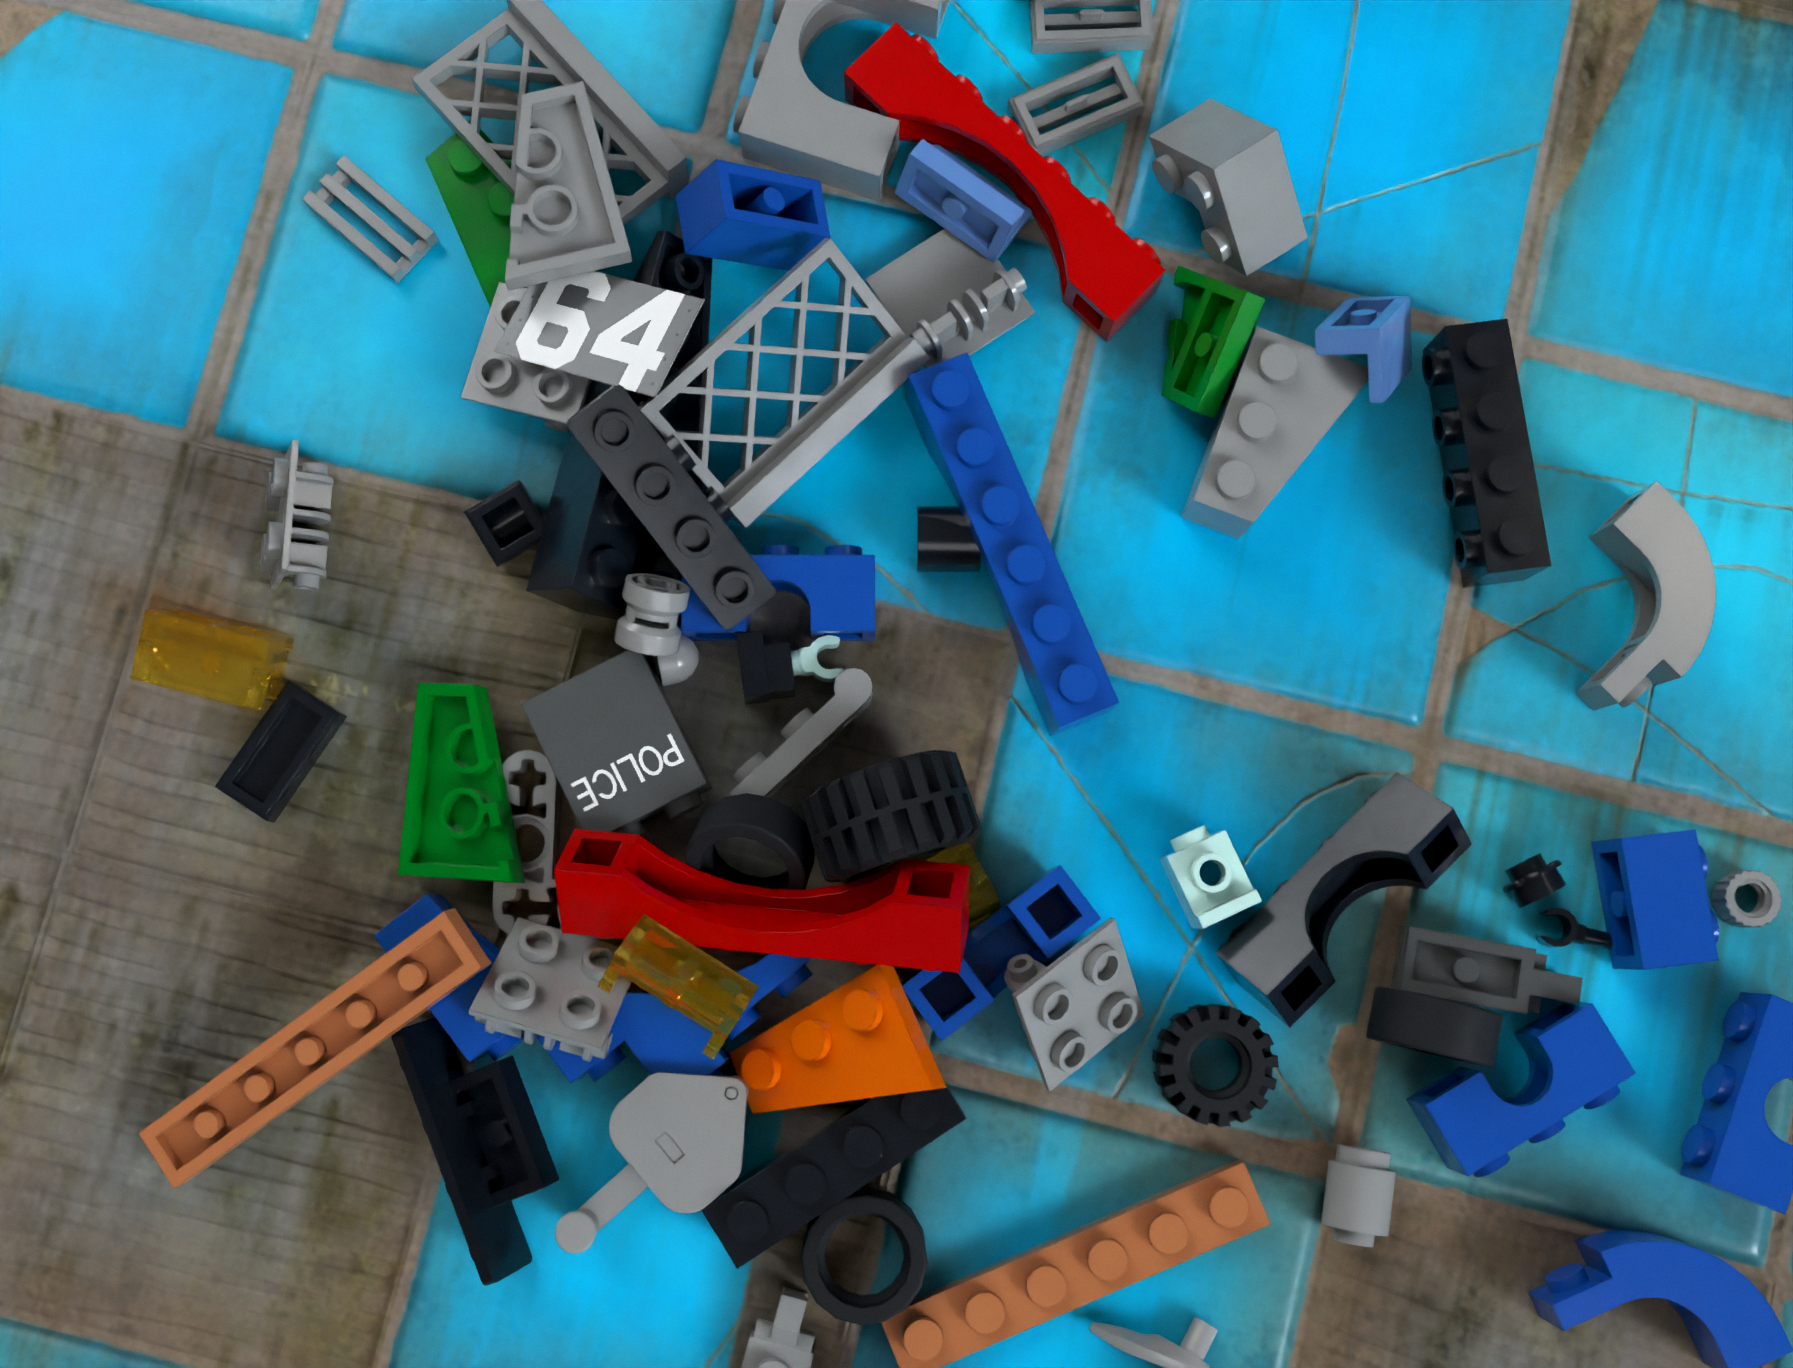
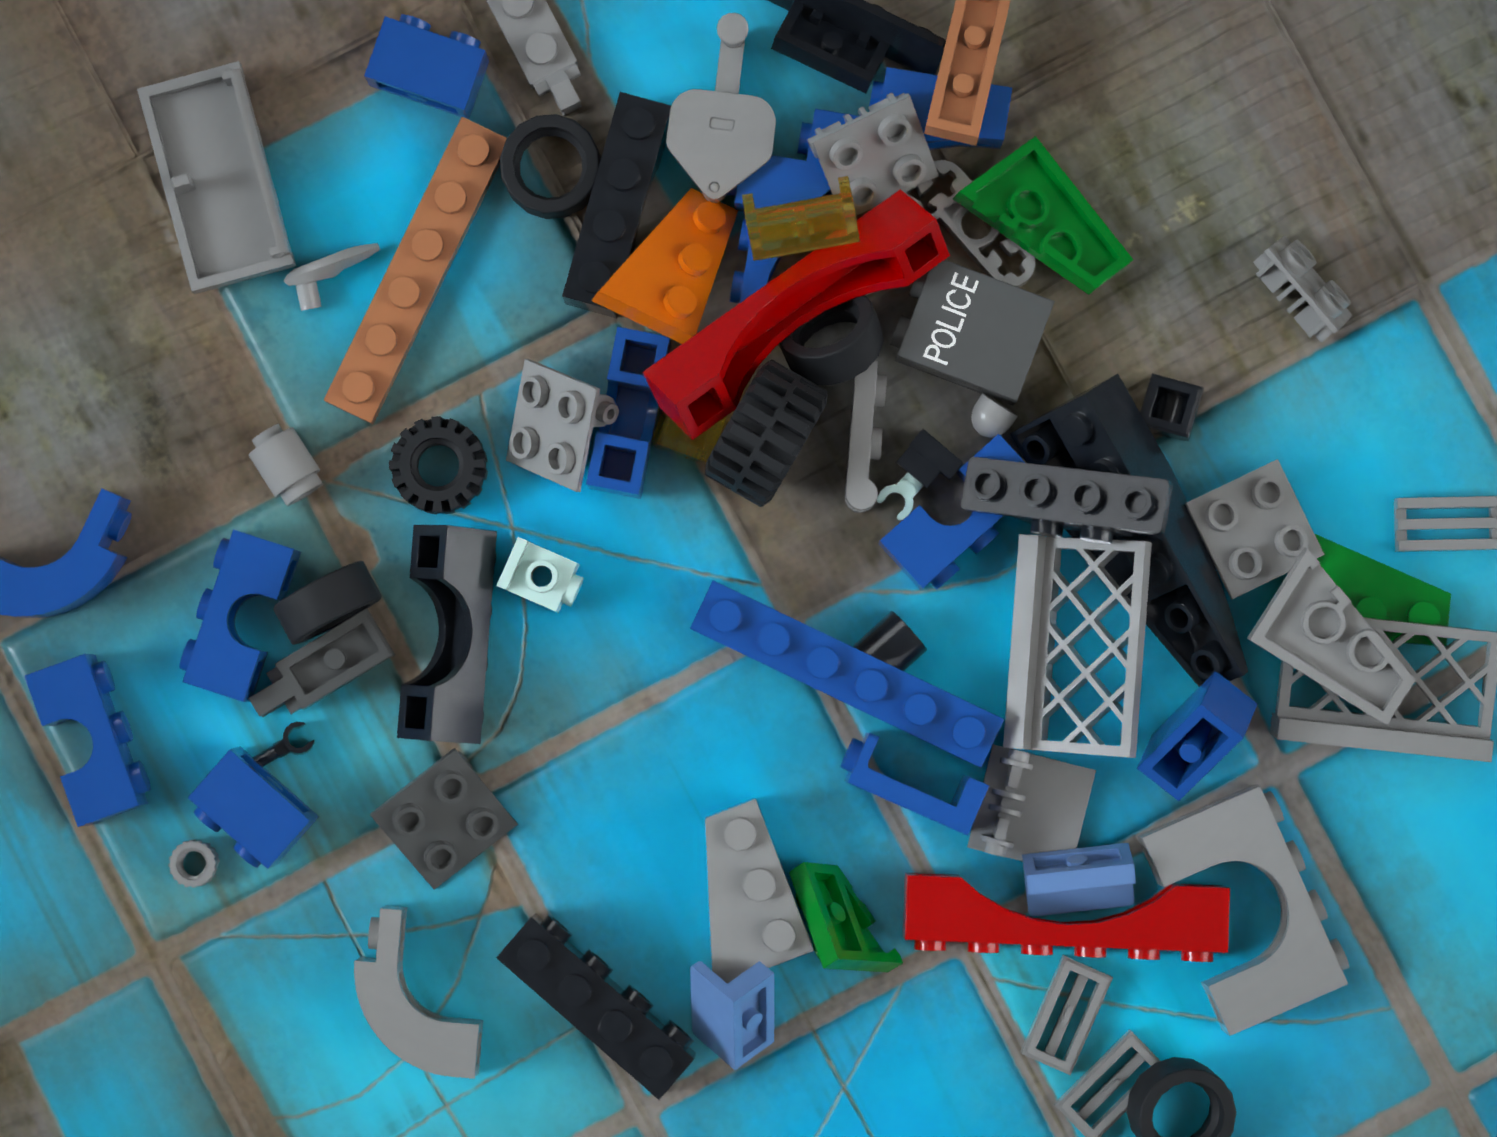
camera: 145 degrees right, 5 degrees up
(210, 657) = (1275, 161): clear yellow hinge -> none
(281, 751) = (1180, 145): black tile -> none
(601, 329) = (1221, 574): sticker -> none
(652, 614) = (1024, 426): light grey wheel -> none
(1027, 338) = (956, 815): none -> blue panel
(1235, 179) = (916, 1037): light grey brick -> none
(1482, 739) = (444, 818): none -> dark grey hinge
(1533, 880) = (337, 755): black plate -> none

